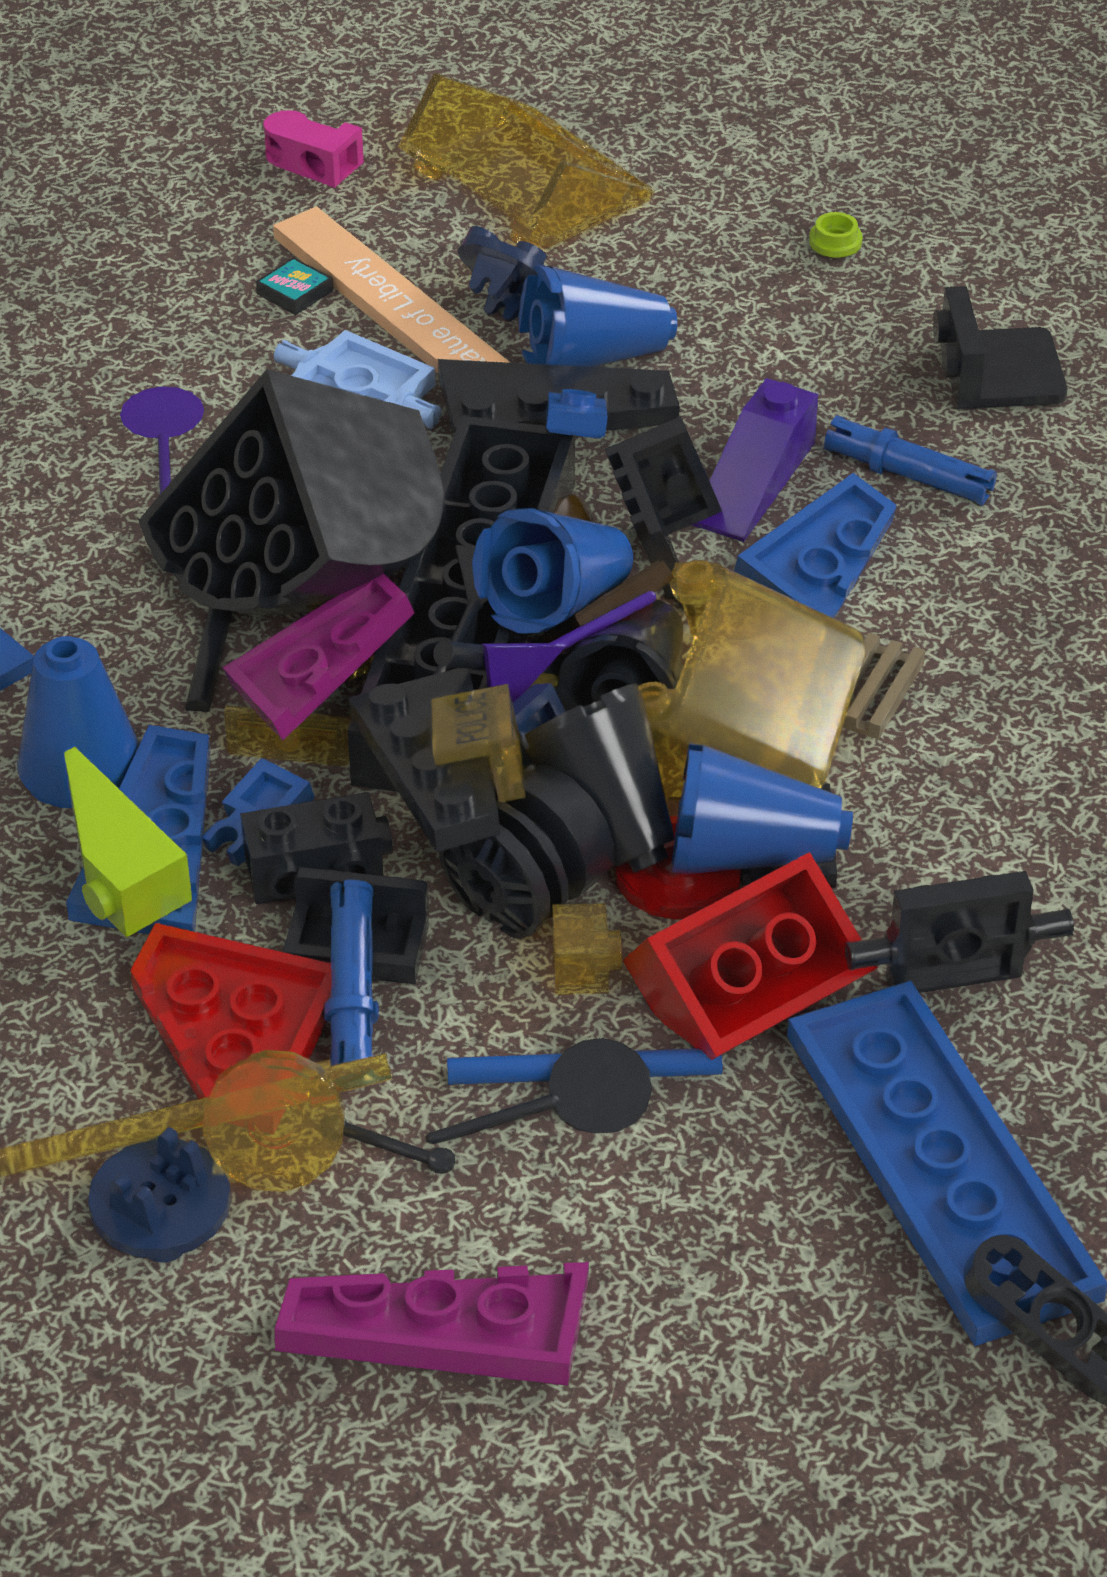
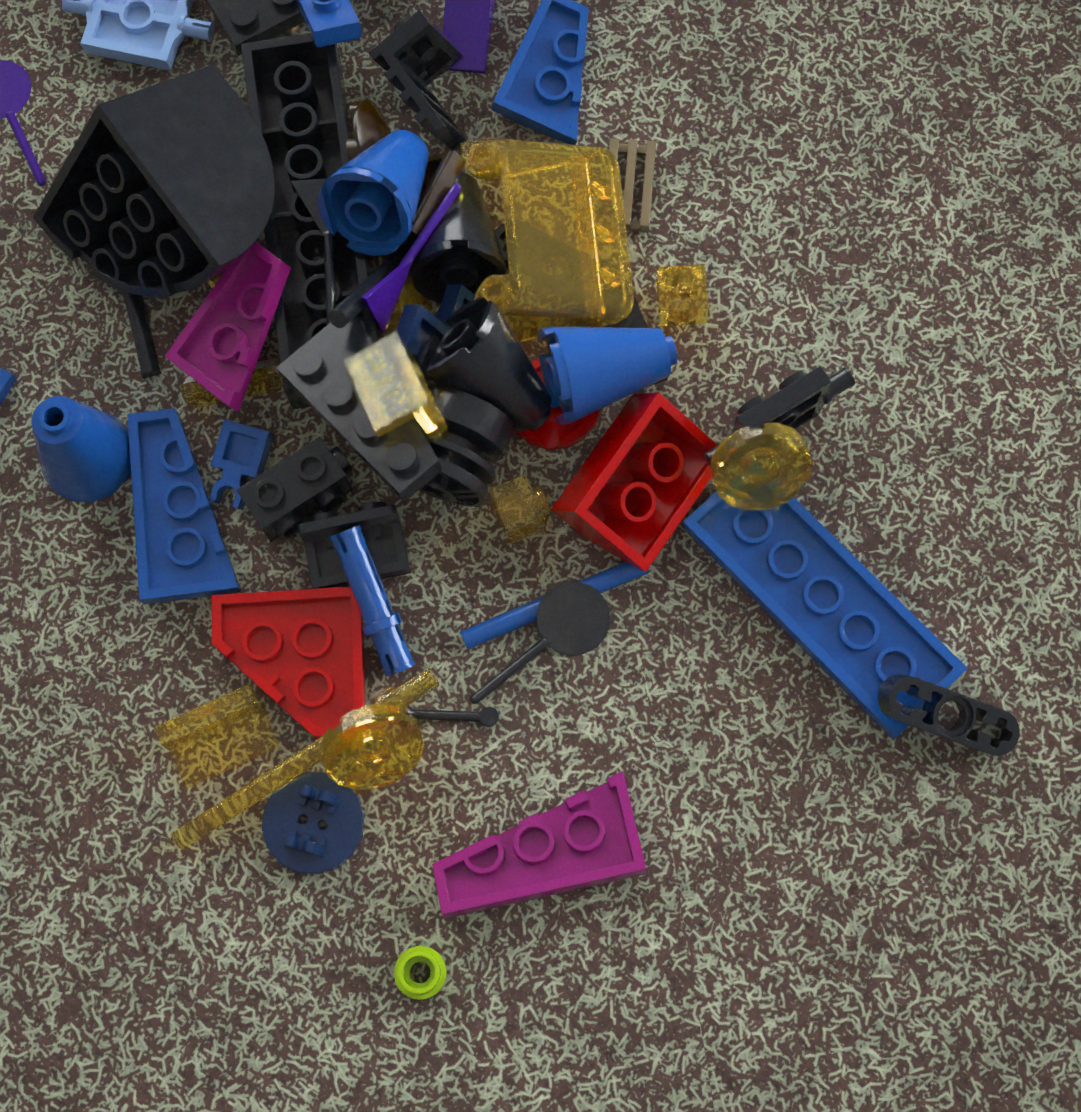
camera: 15 degrees left, 30 degrees up
(87, 1065) = (218, 736): none -> clear yellow panel
(127, 860) = (168, 560): lime slope -> none
(208, 1382) = (403, 969): none -> lime plate
(889, 797) = (682, 281): none -> clear yellow plate
(909, 964) = (761, 466): none -> clear yellow tile

